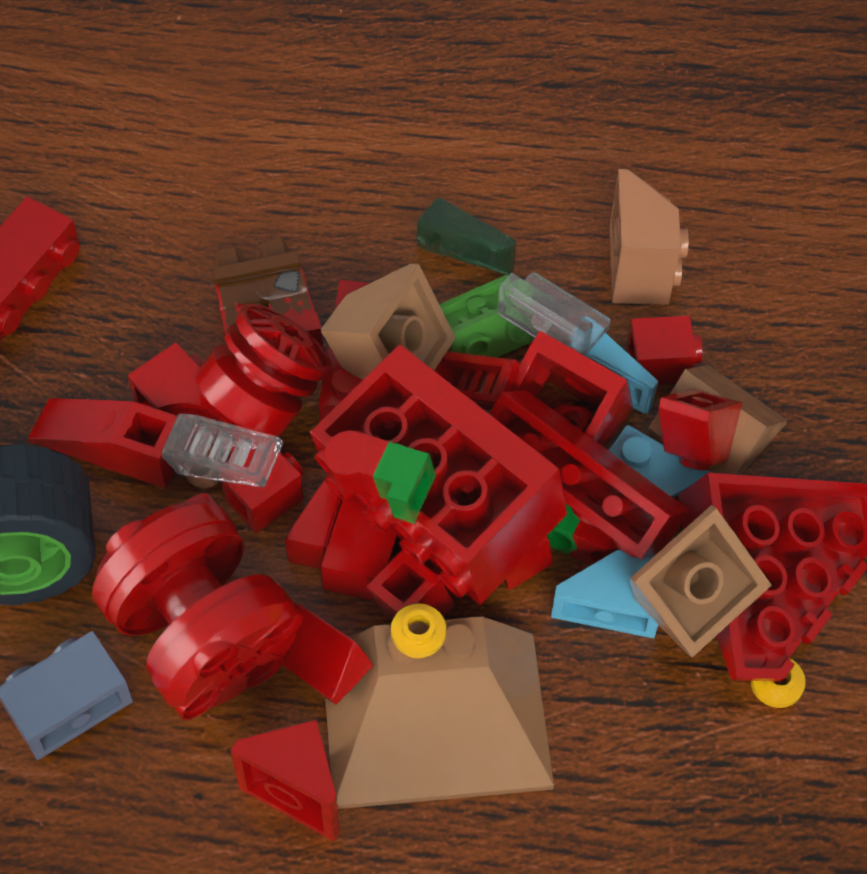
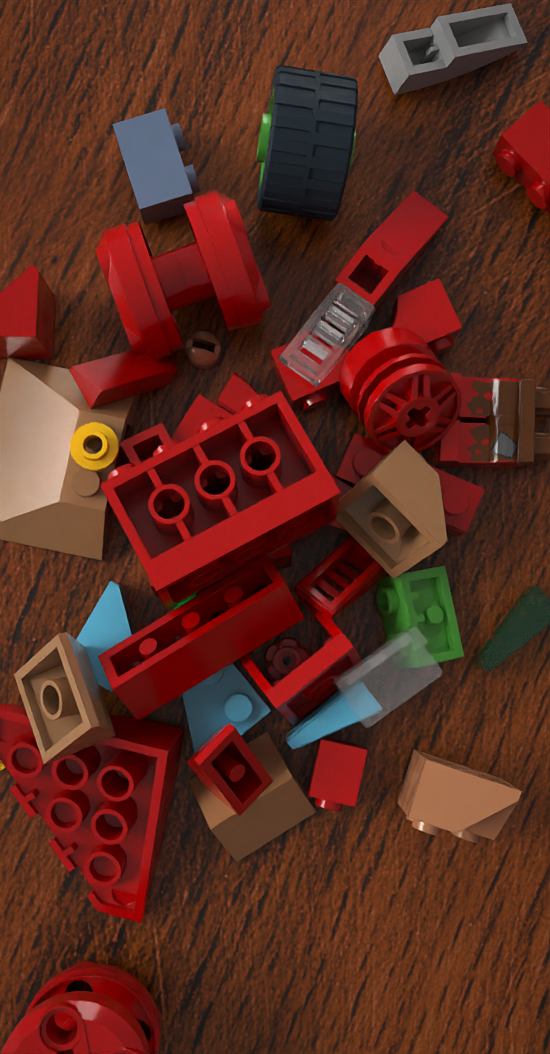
camera: 105 degrees right, 25 degrees up
(382, 469) = (204, 431): leg -> none

